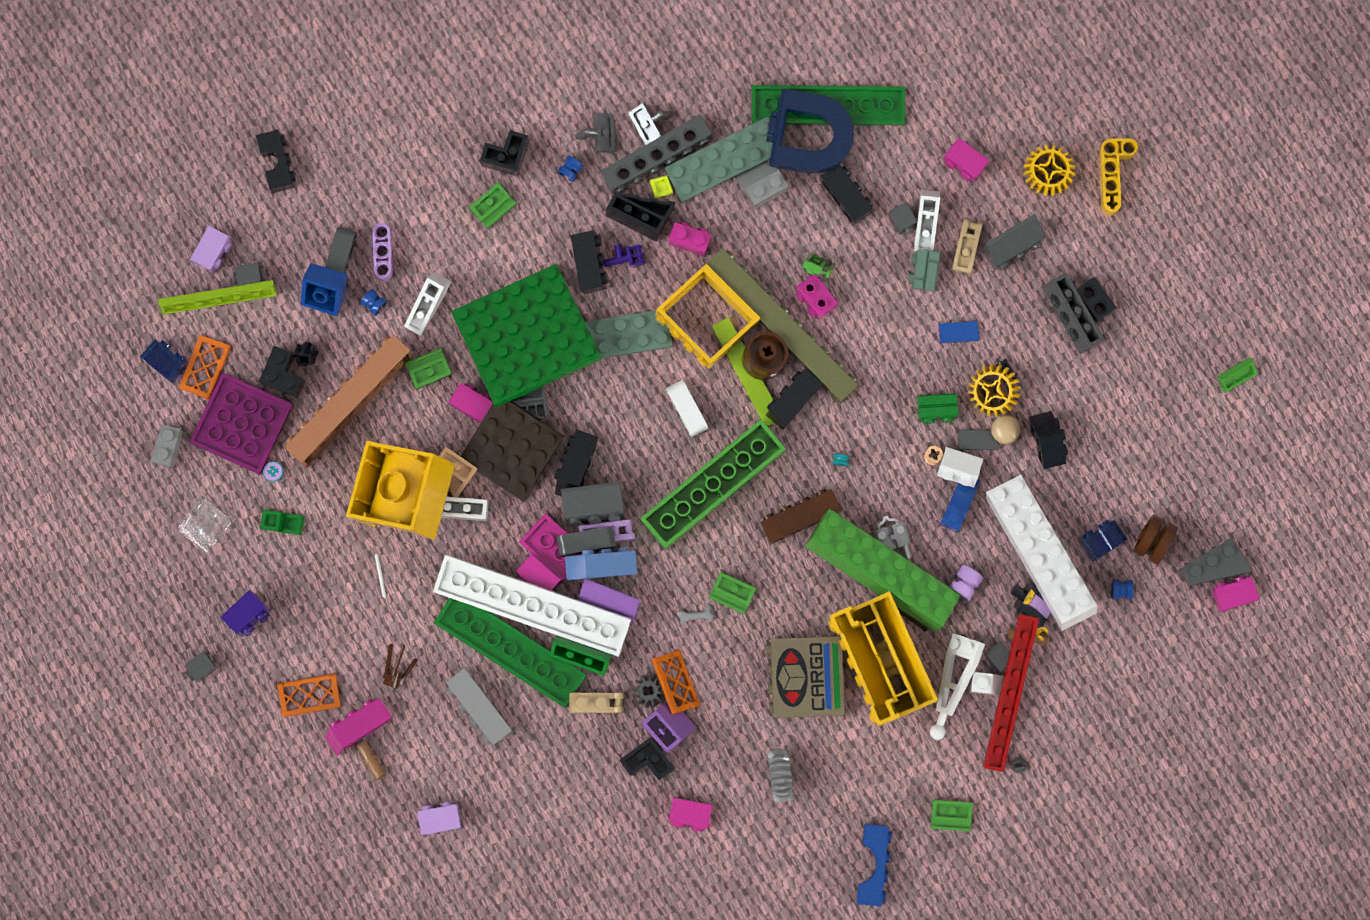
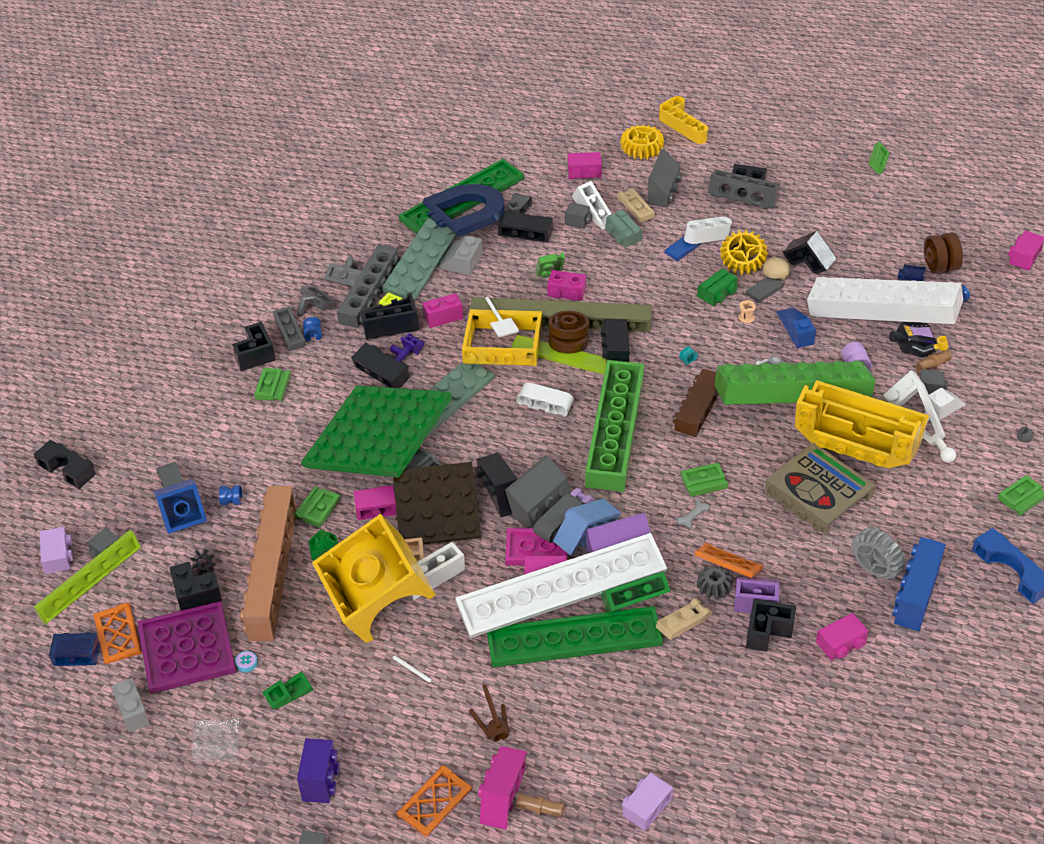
camera: 40 degrees left, 35 degrees down
(379, 243) = (209, 461): lavender beam -> none
(400, 416) = (321, 543): none -> green brick
(427, 303) = (275, 462): white slope -> none
(479, 707) = (592, 693): light grey brick -> none
(554, 149) = (289, 328): none -> dark grey plate
(713, 310) = (502, 327): none -> white piece
(784, 824) = (918, 583): none -> blue brick
(866, 159) = (519, 203): none -> dark grey piece
(959, 467) = (773, 304): white brick -> none
(1001, 336) = (707, 230): none -> white beam
(1011, 692) = (967, 391): red plate -> none
(1217, 564) = (995, 244): dark grey wedge -> none

